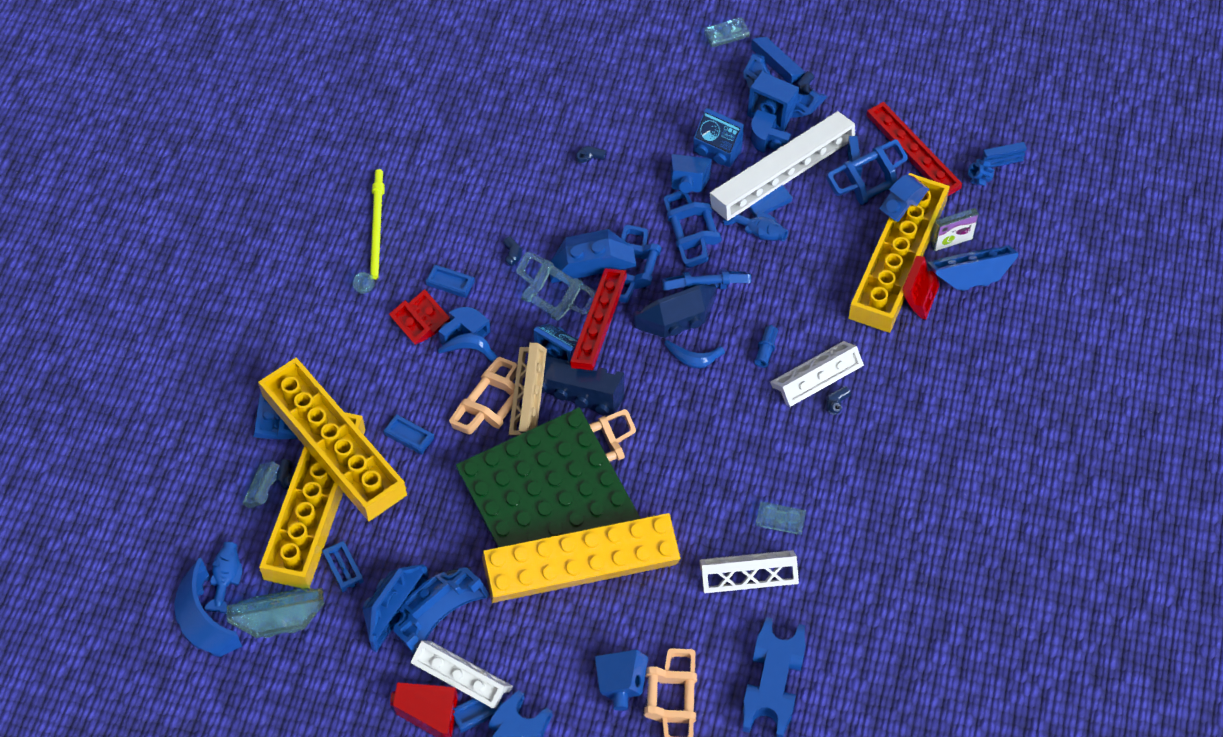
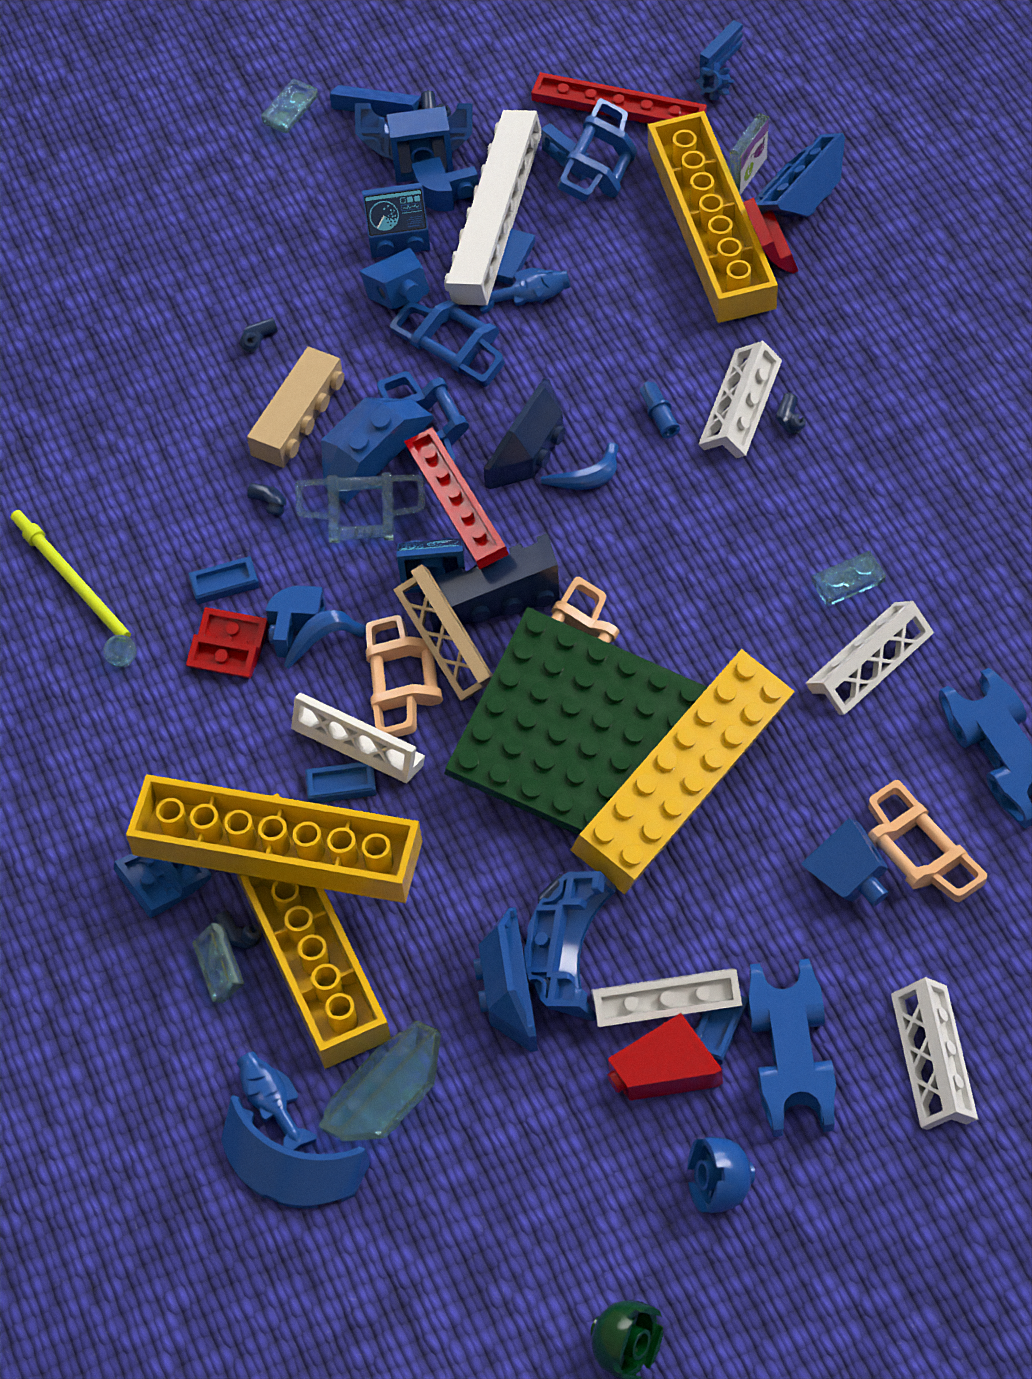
camera: 35 degrees left, 0 degrees up
(350, 581) = (411, 971): blue tile -> none
(434, 416) = (355, 738): none -> white fence
(571, 209) = (295, 407): none -> tan brick
(721, 280) = (546, 364): blue bar -> none
(903, 193) = (673, 150): blue brick -> none

